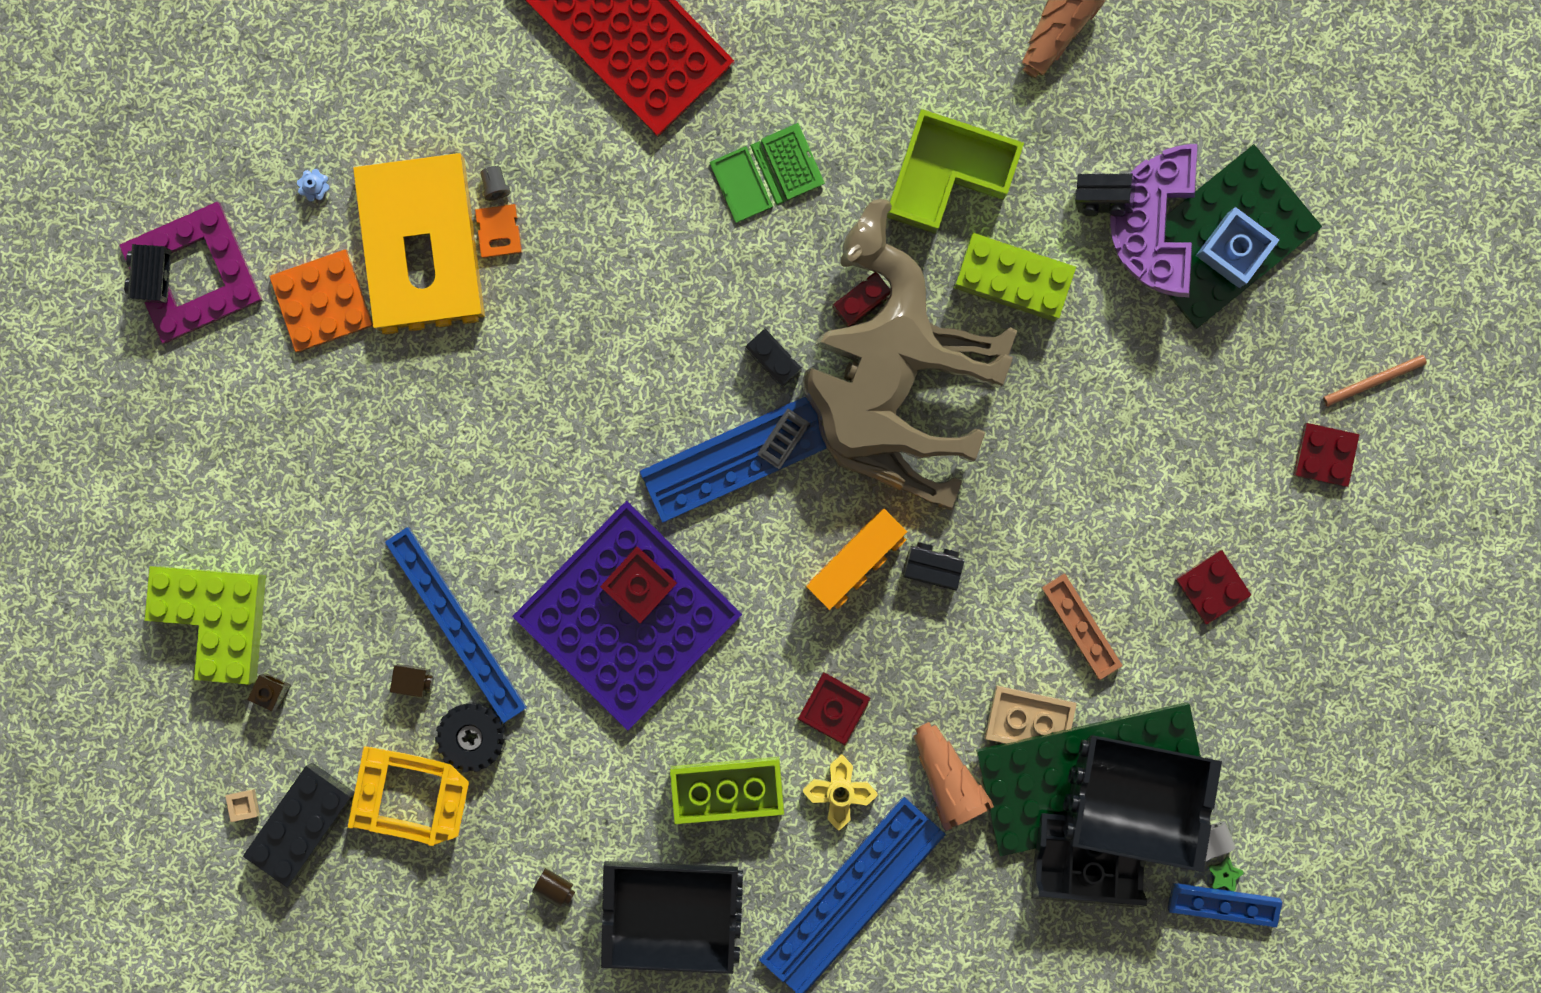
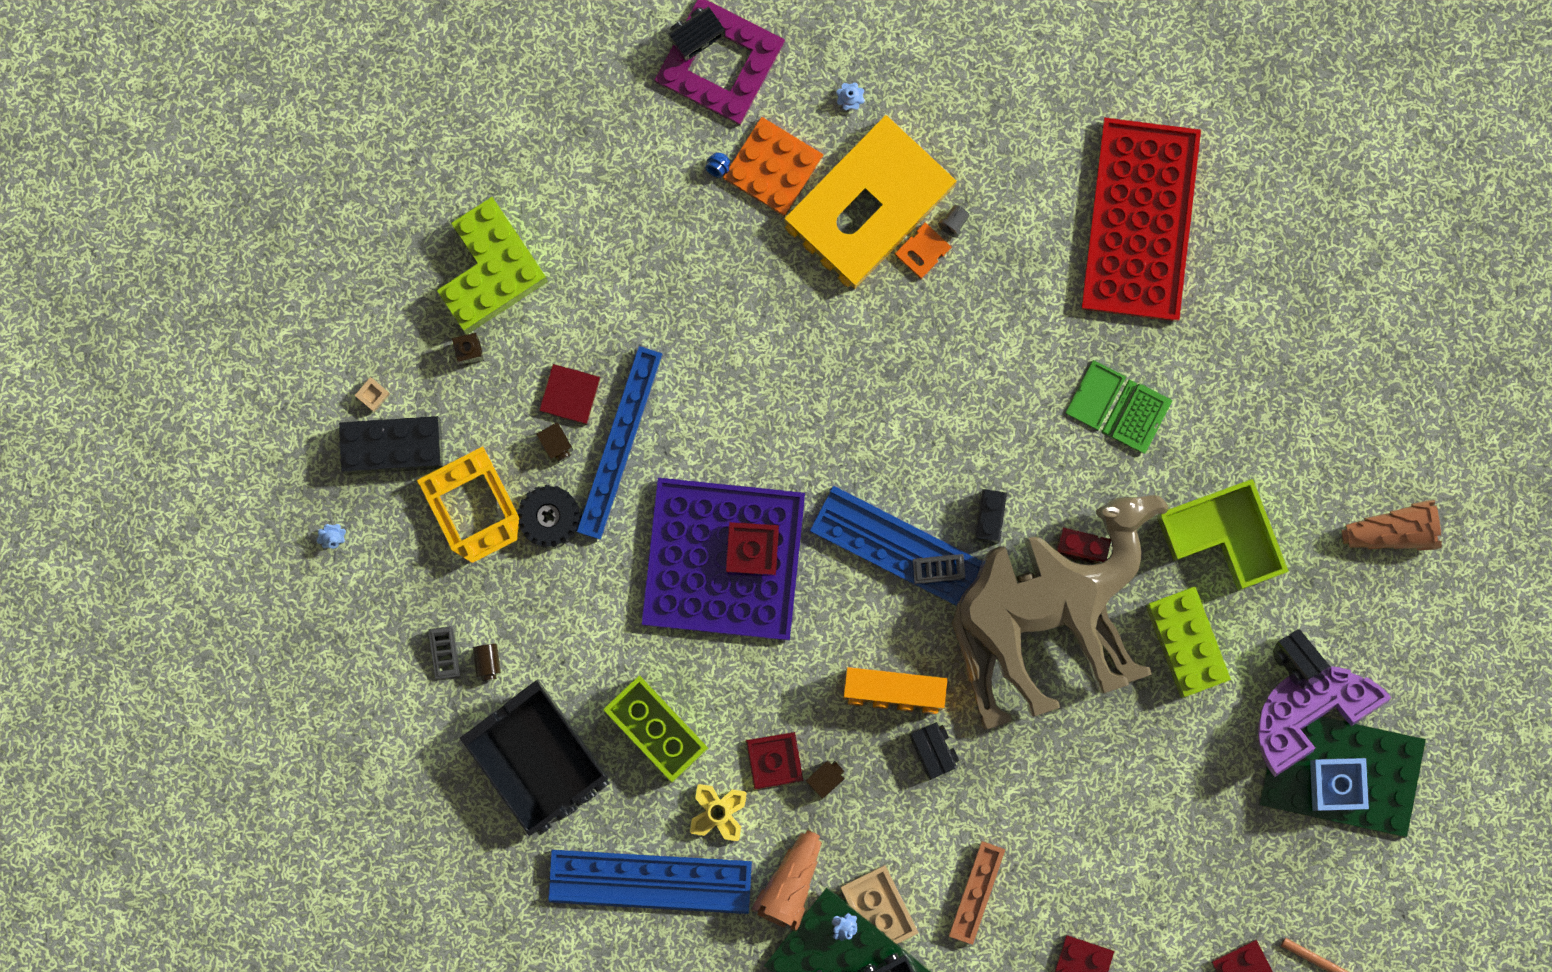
camera: 50 degrees right, 5 degrees down
(281, 347) = (717, 165): none -> blue plate
(337, 938) = (331, 536): none -> light blue plant
(379, 634) = (570, 394): none -> dark red tile
(512, 927) = (453, 651): none -> dark grey slope
(884, 677) = (826, 778): none -> dark brown brick
(1024, 764) = (845, 927): none -> light blue plant

